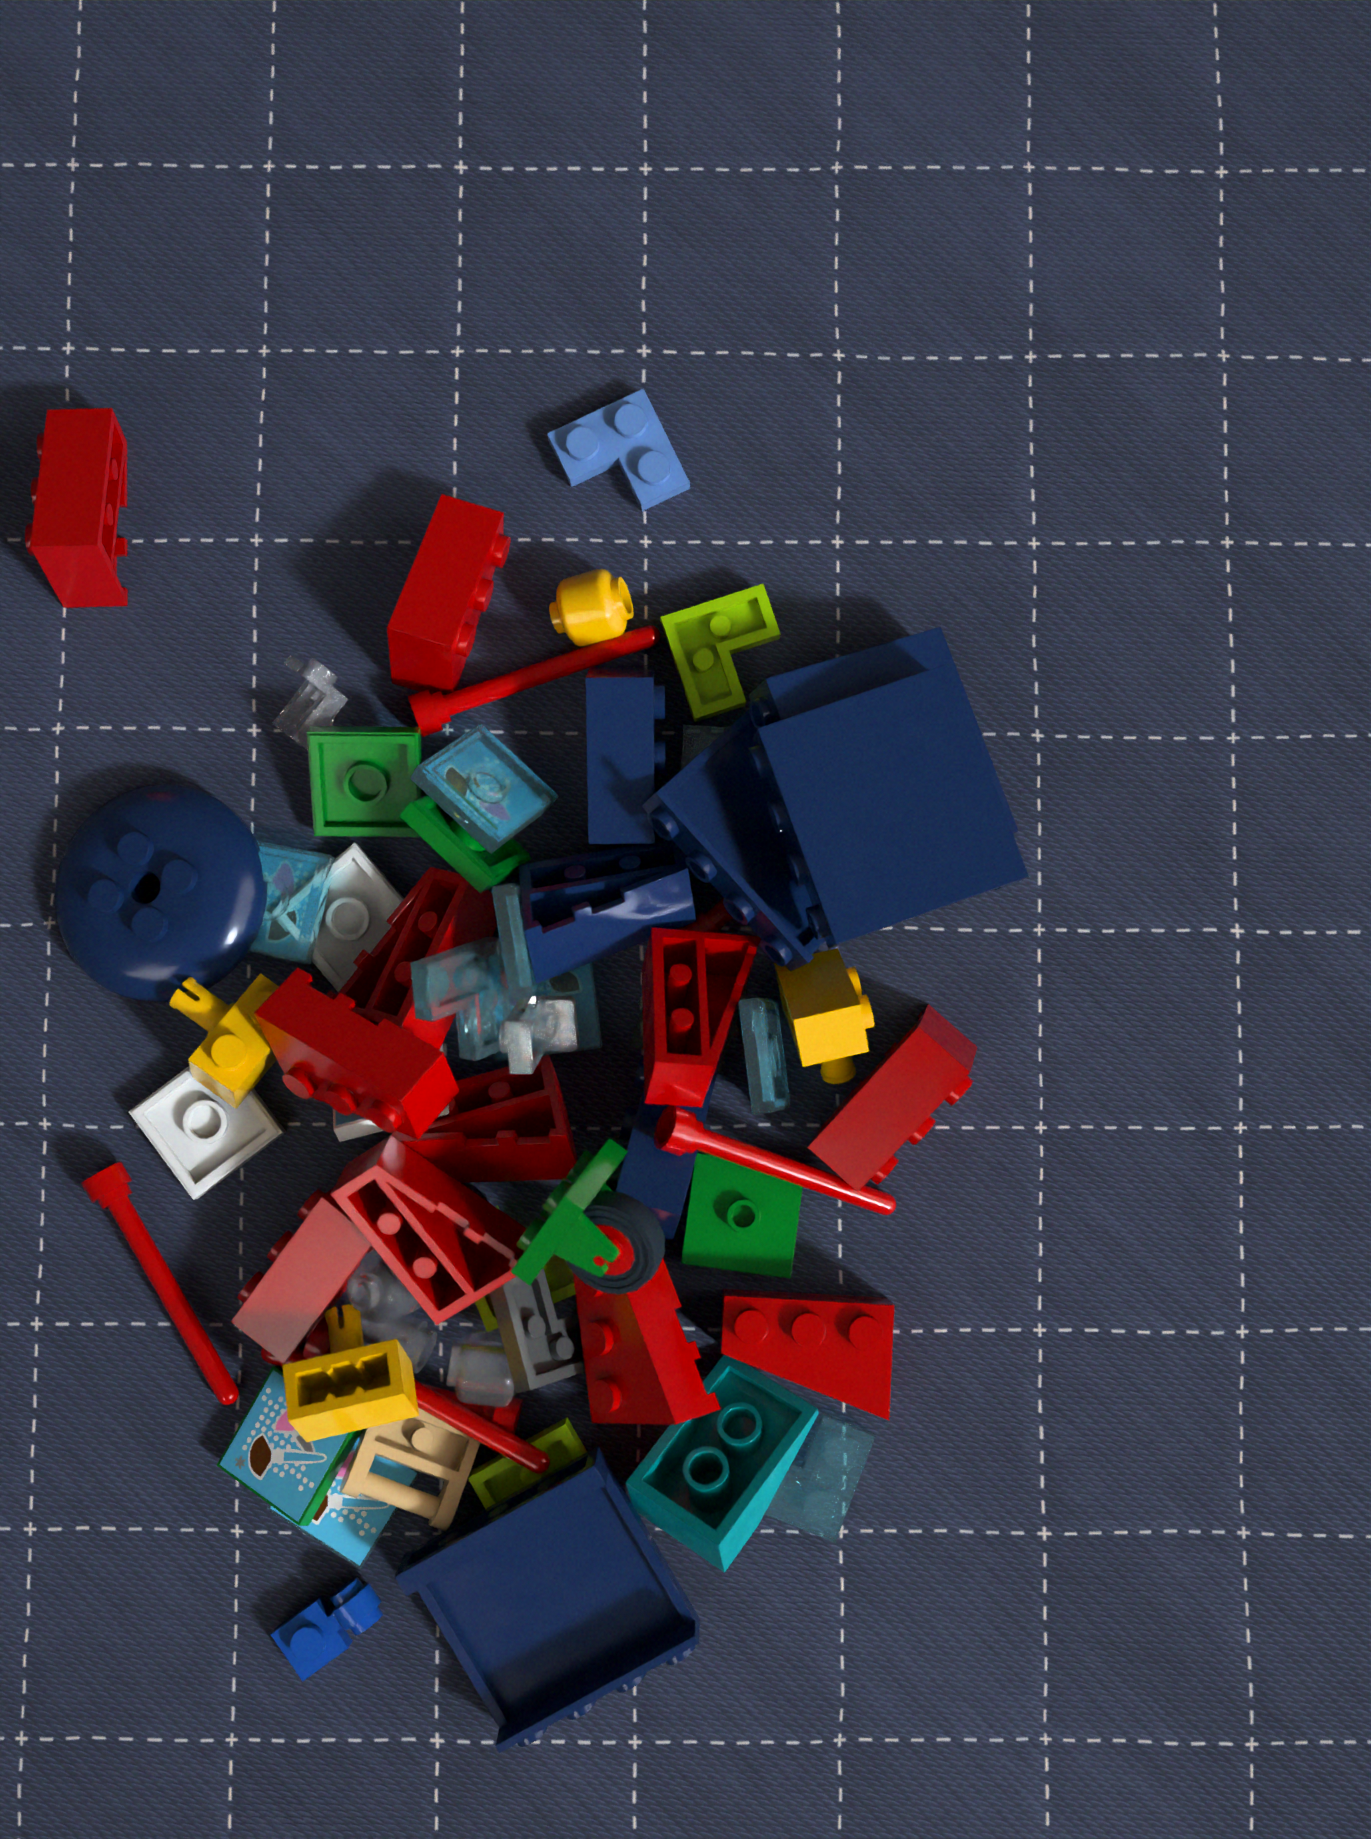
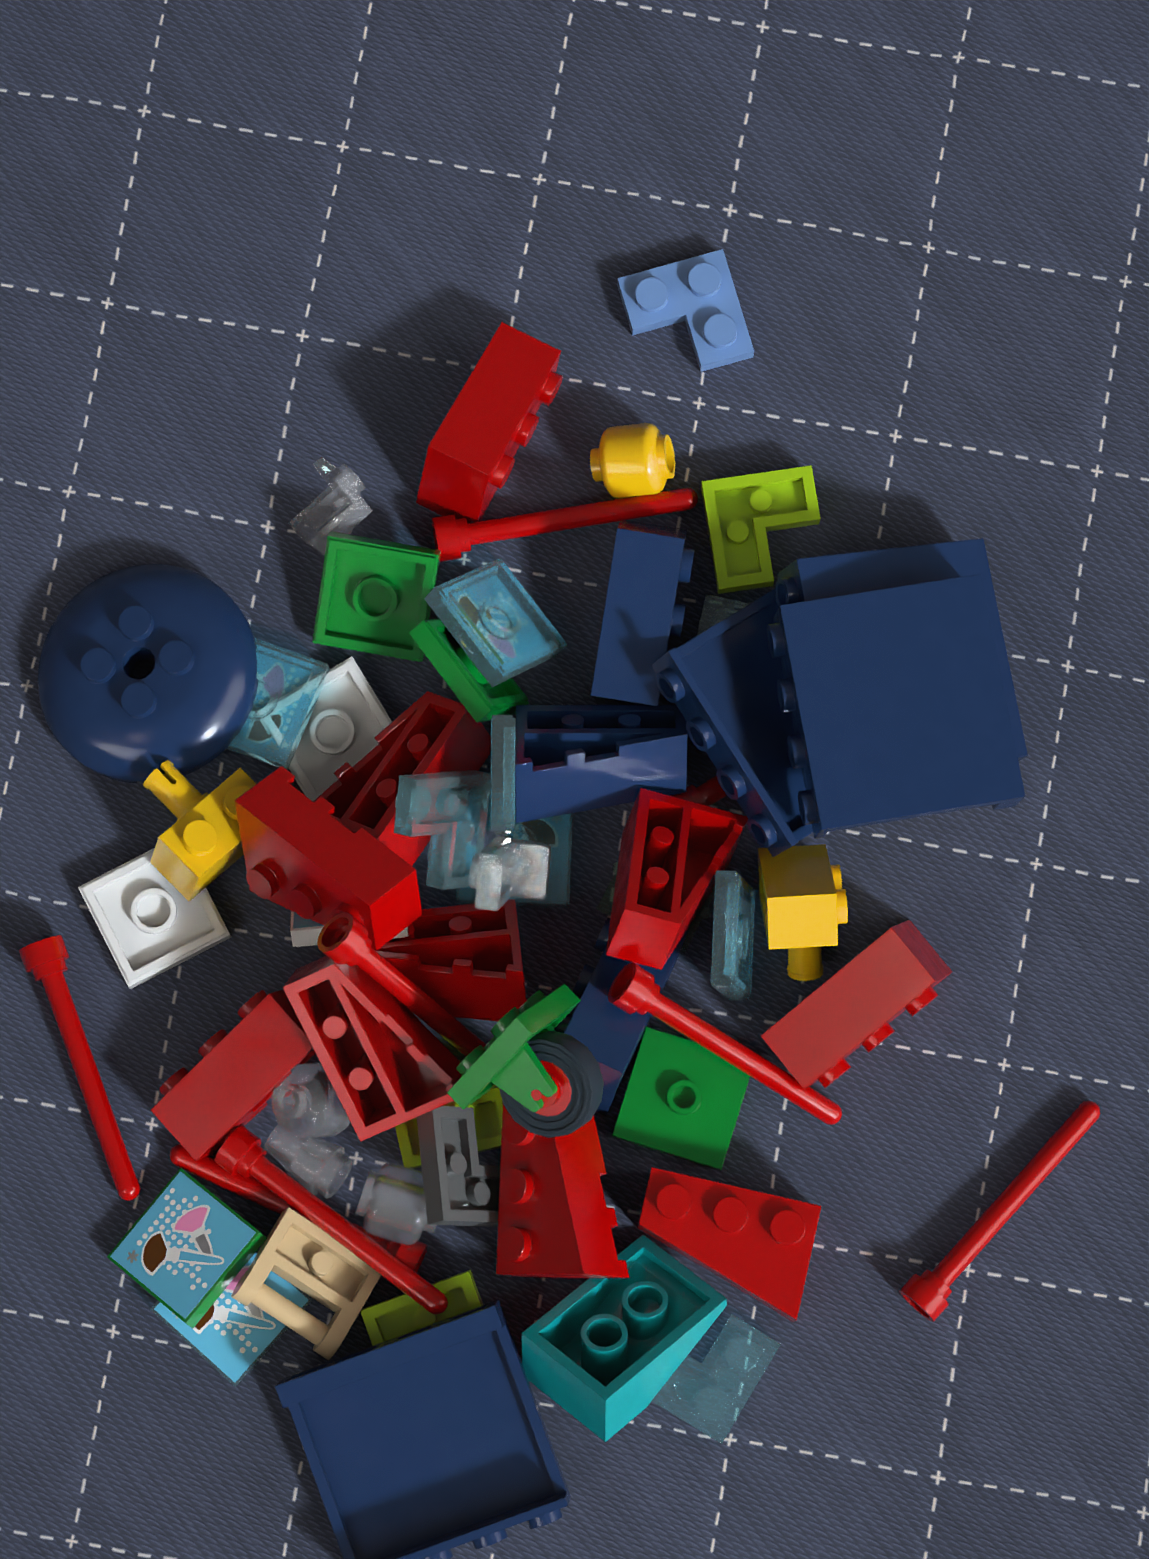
camera: 10 degrees right, 5 degrees down
(78, 506) = (135, 274): red wedge -> none
(319, 1634) = (177, 1446): blue plate -> none
(350, 1386) = (264, 1186): yellow brick -> none
(386, 1141) = (348, 943): none -> red piece
(1010, 1357) = (931, 1289): none -> red piece

